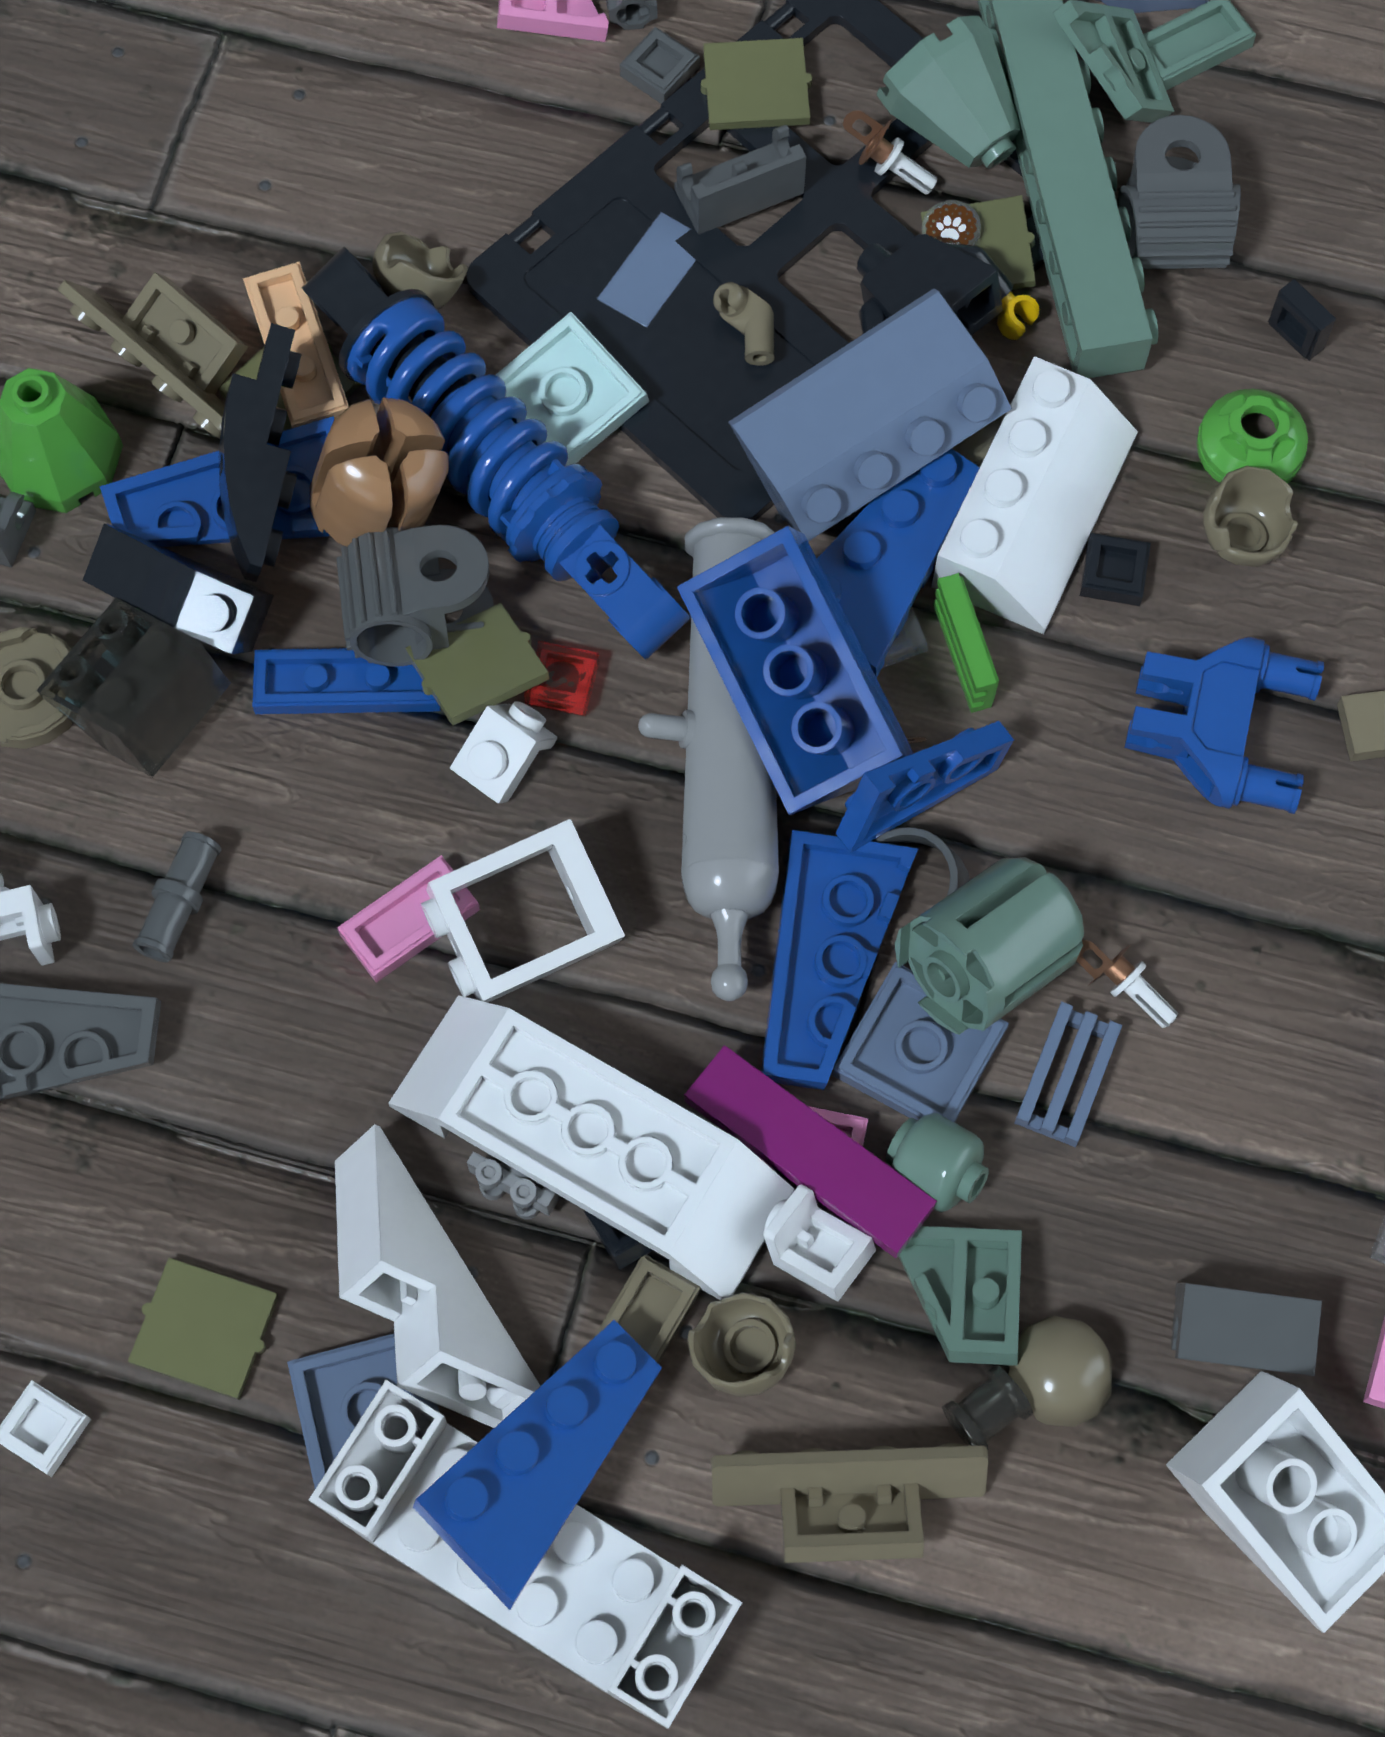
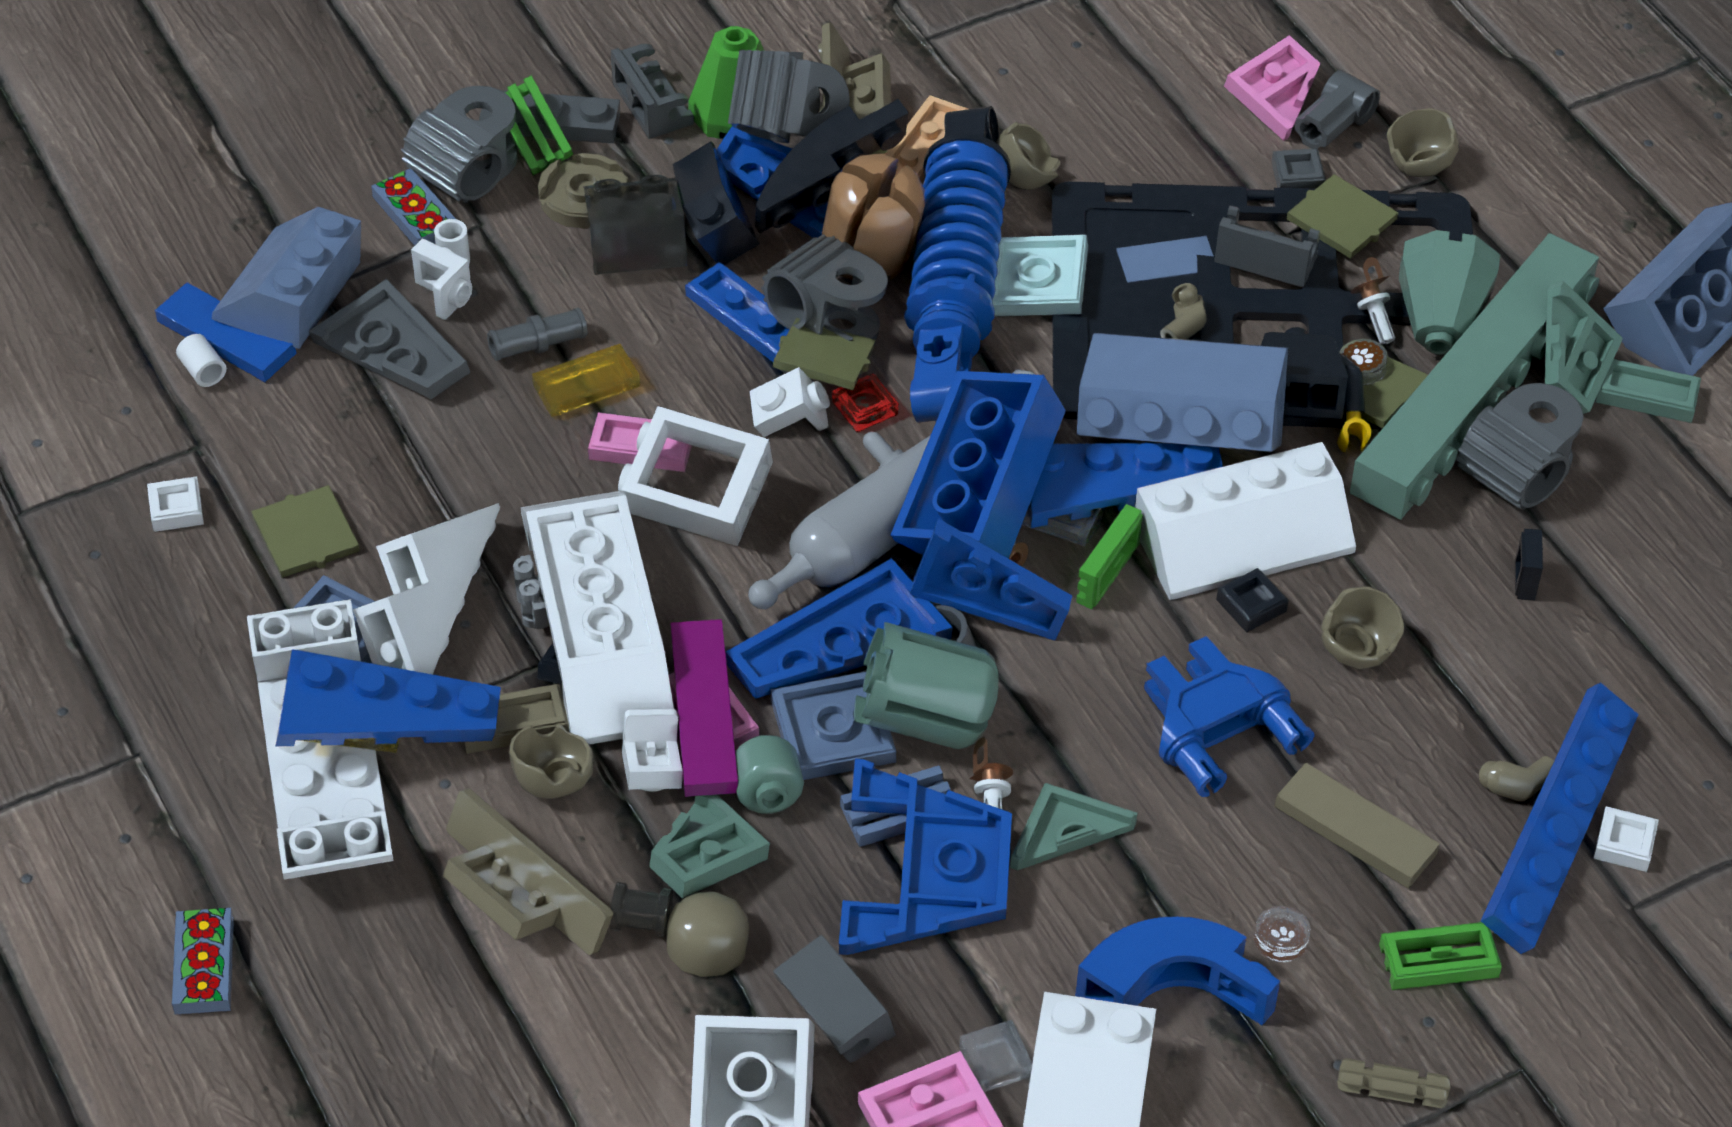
camera: 45 degrees right, 20 degrees down
(132, 417) = (780, 94): none -> dark grey piece
(278, 901) = (586, 380): none -> clear yellow tile
(1183, 1090) = (951, 863): none -> blue wing
(1214, 952) = (1065, 823): none -> sand green tile
(1227, 447) = (1429, 619): bright green piece -> none

